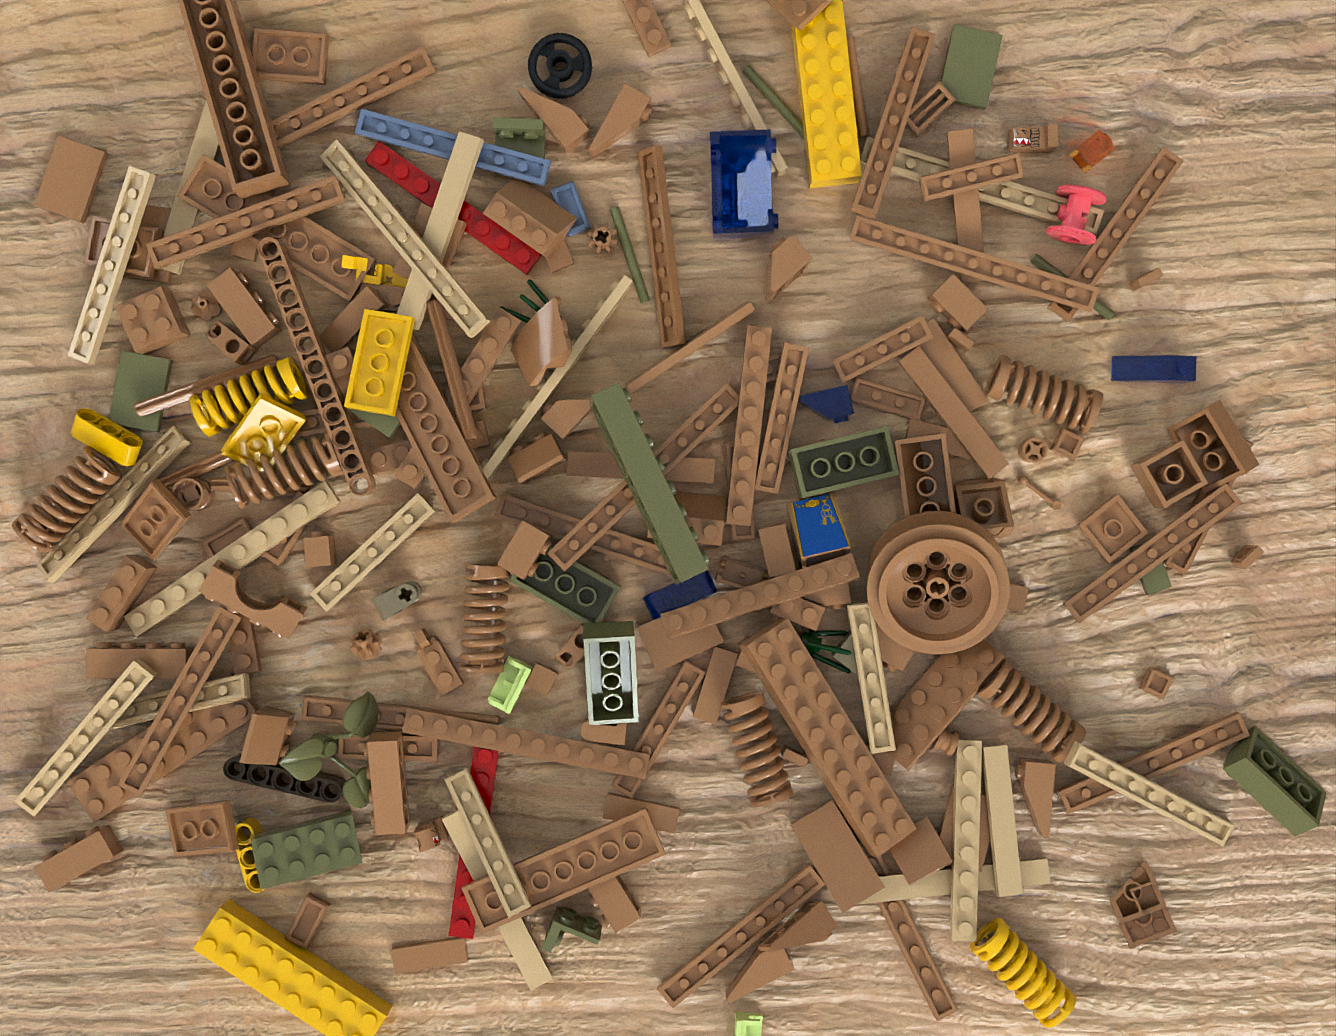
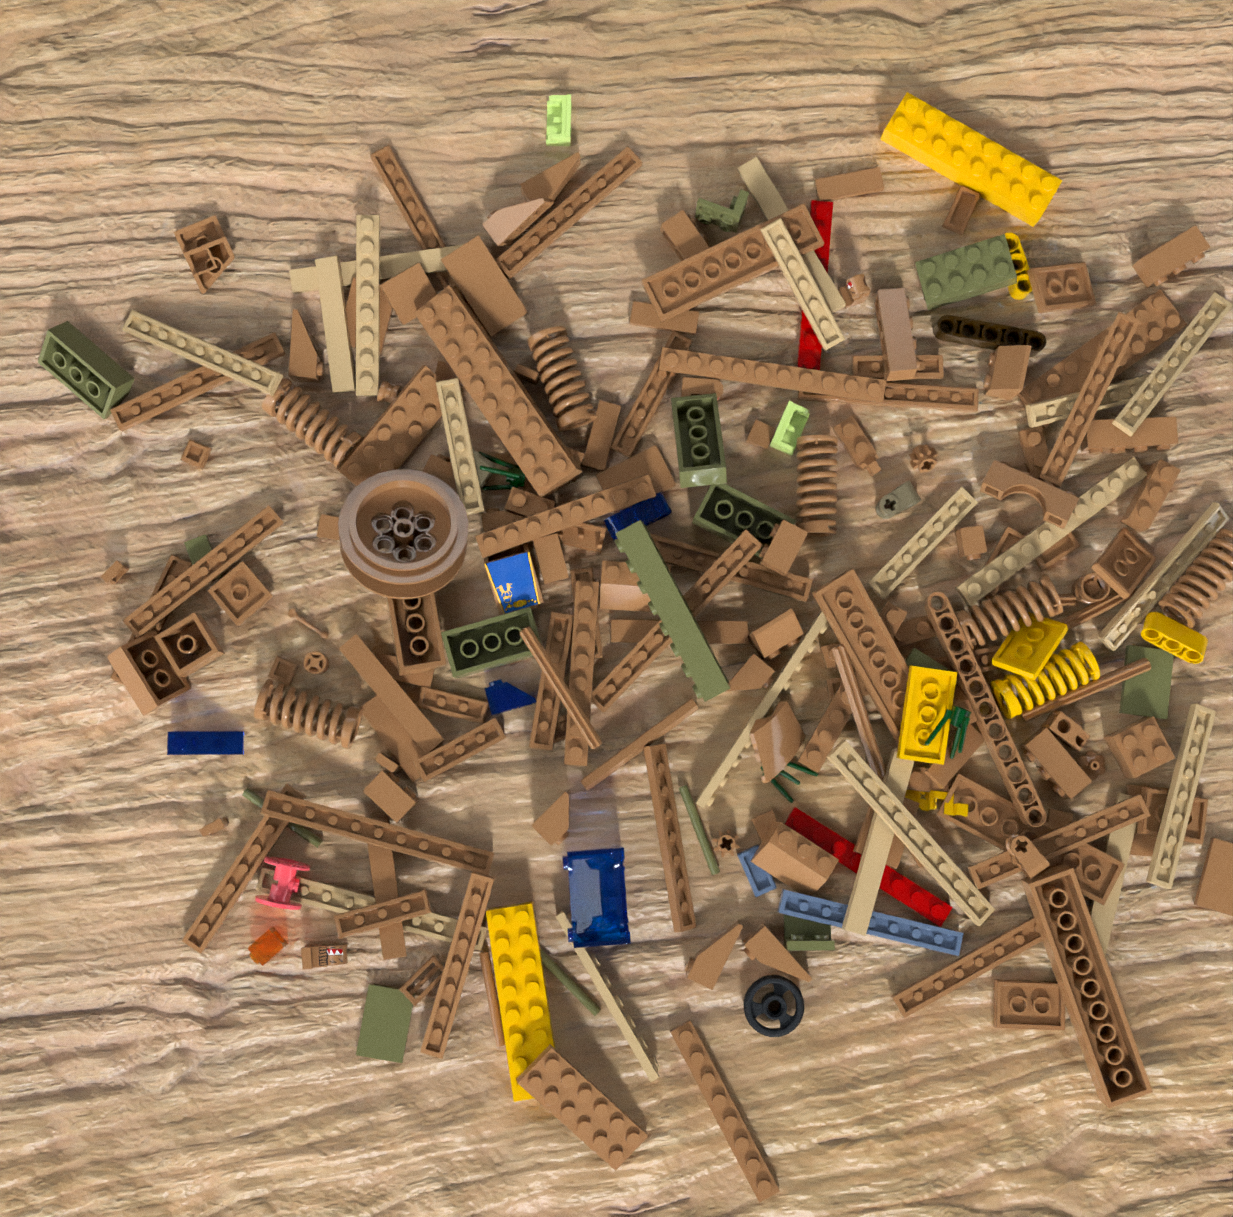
camera: 170 degrees right, 5 degrees down
(280, 205) = (1028, 857): none -> medium nougat piece
(305, 759) = (971, 350): olive plant -> none
(345, 356) = (960, 718): none -> dark green plant
(572, 650) = (734, 461): medium nougat leg -> none
(773, 408) = (560, 687): none -> medium nougat axle
(985, 503) = (359, 609): medium nougat slope -> none
(1020, 974) = (315, 187): yellow piece -> none

